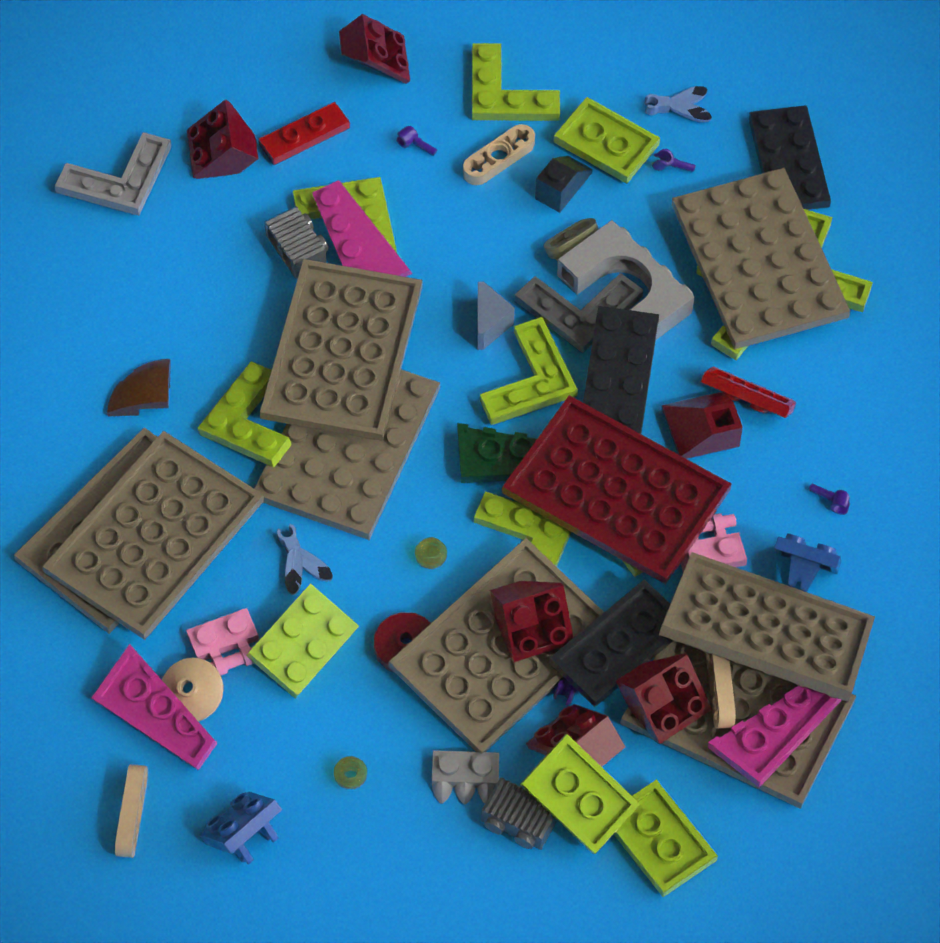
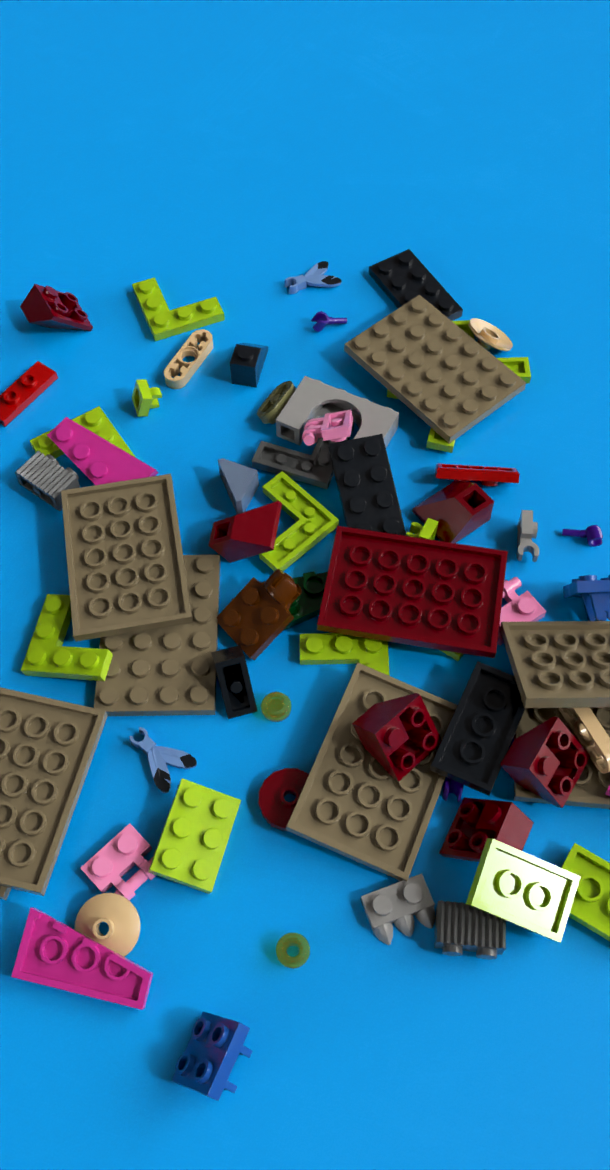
camera: 20 degrees left, 0 degrees up
(131, 811) = (94, 1086): tan beam -> none
(399, 513) = (234, 681): none -> black slope
(409, 135) = (109, 367): dark purple hand -> none
(432, 184) = (145, 397): none -> lime tile
(453, 455) = (260, 612): none -> reddish brown plate
(474, 369) = (246, 532): none -> dark red slope
(606, 140) = (269, 320): lime plate -> none
(609, 289) = (331, 427): none -> bright pink plate
(661, 434) = (427, 531): none -> lime tile
(769, 471) = (525, 532): none -> light grey plate
(844, 241) = (489, 335): none -> tan dish

